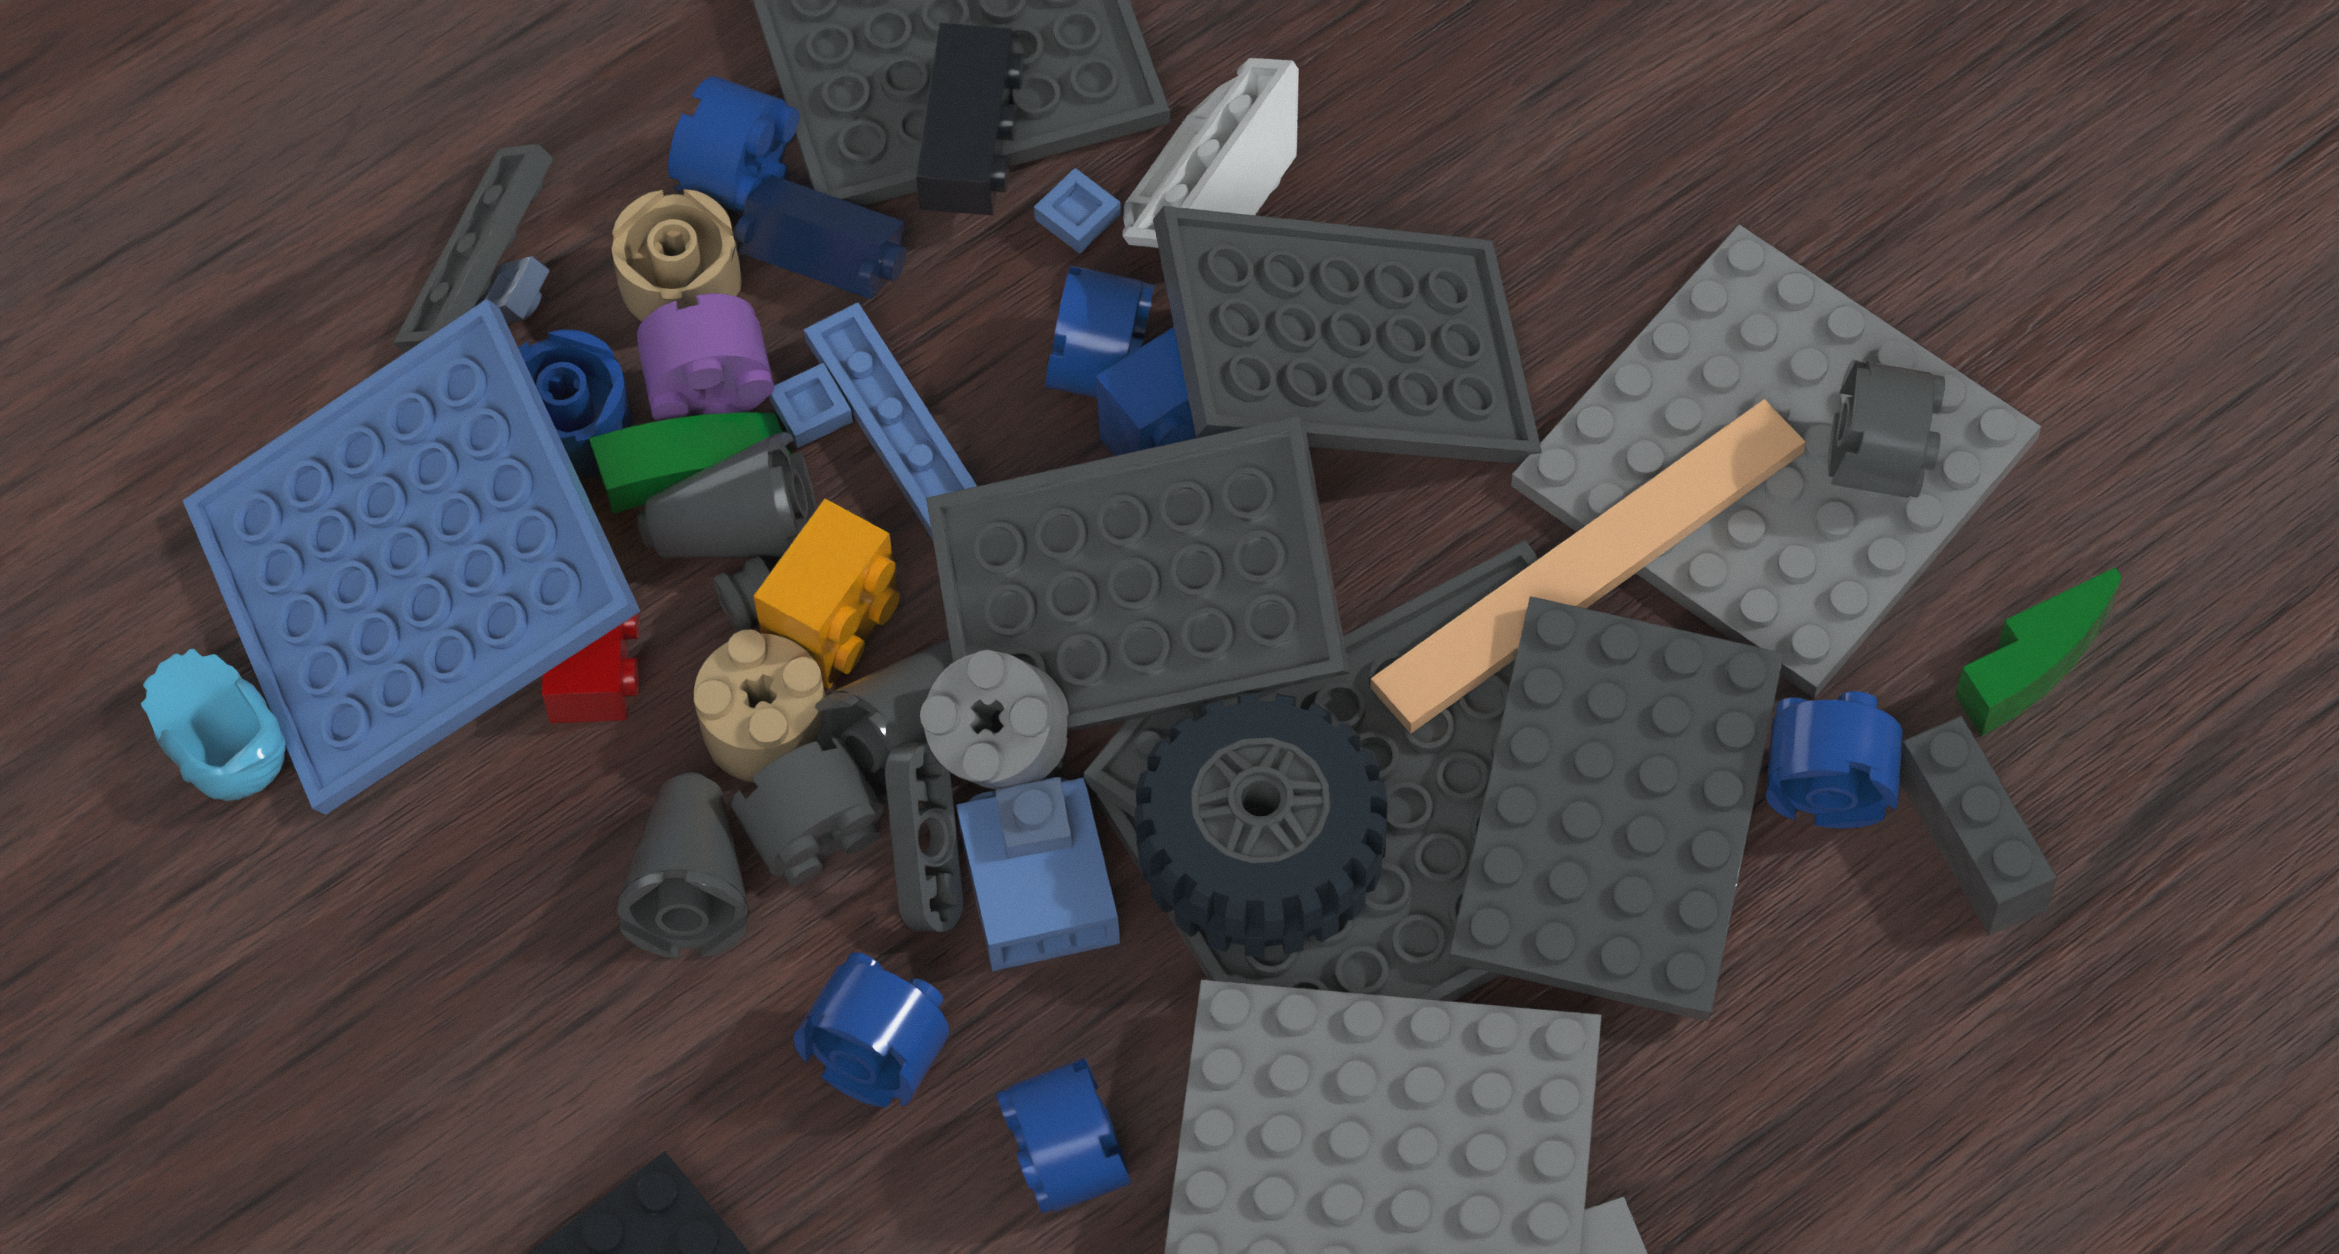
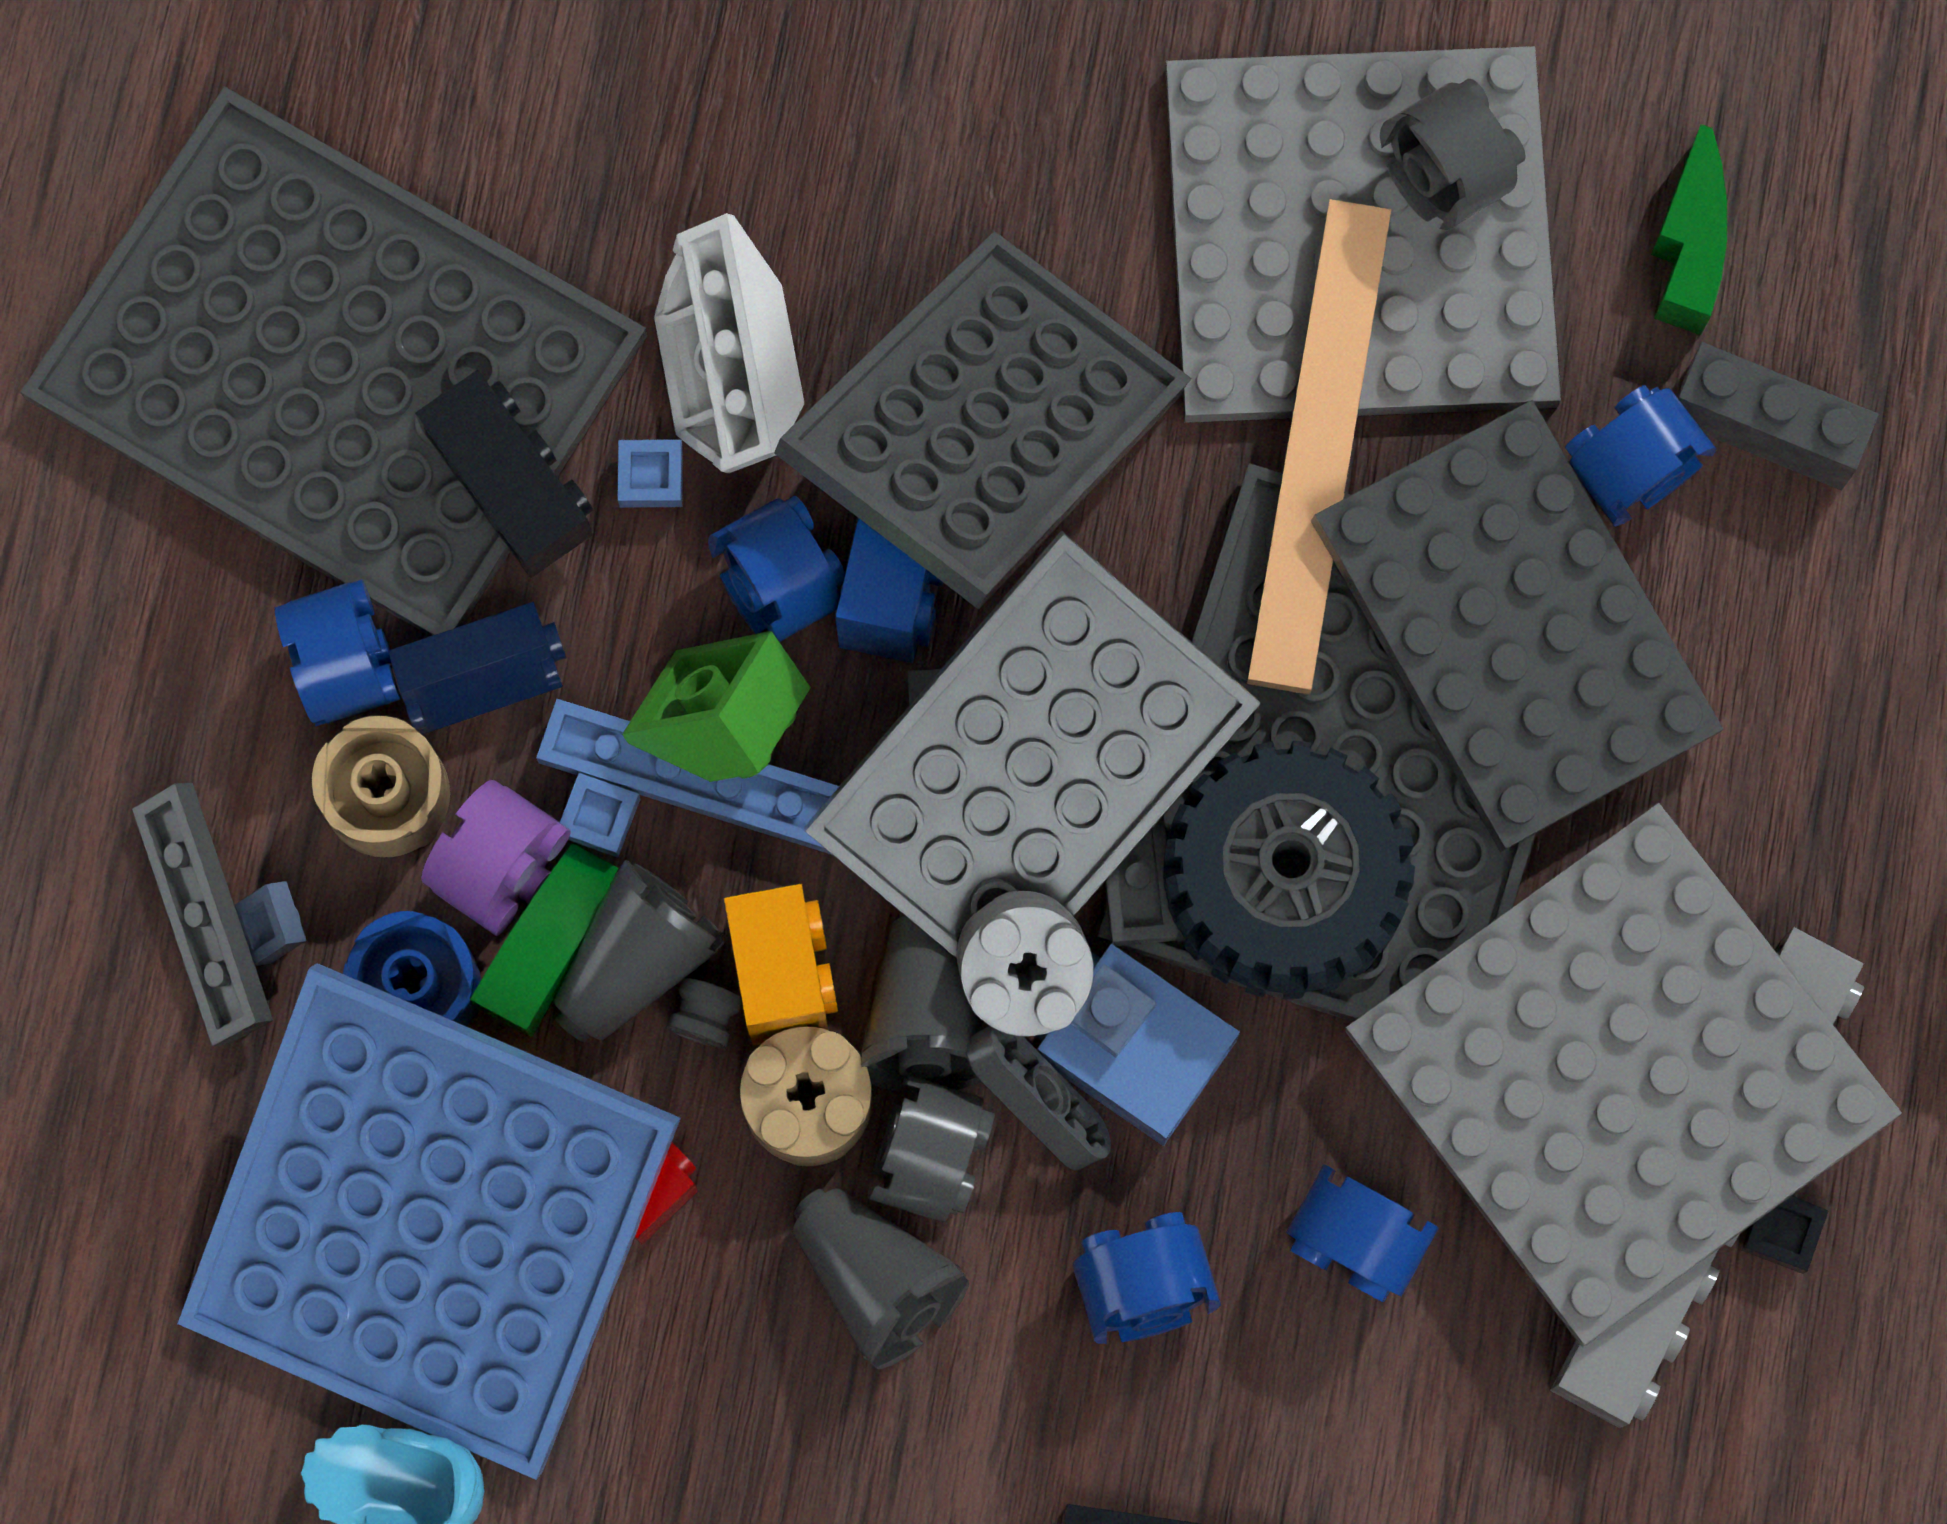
camera: 45 degrees left, 15 degrees up
(965, 396) = (720, 707): none -> bright green slope

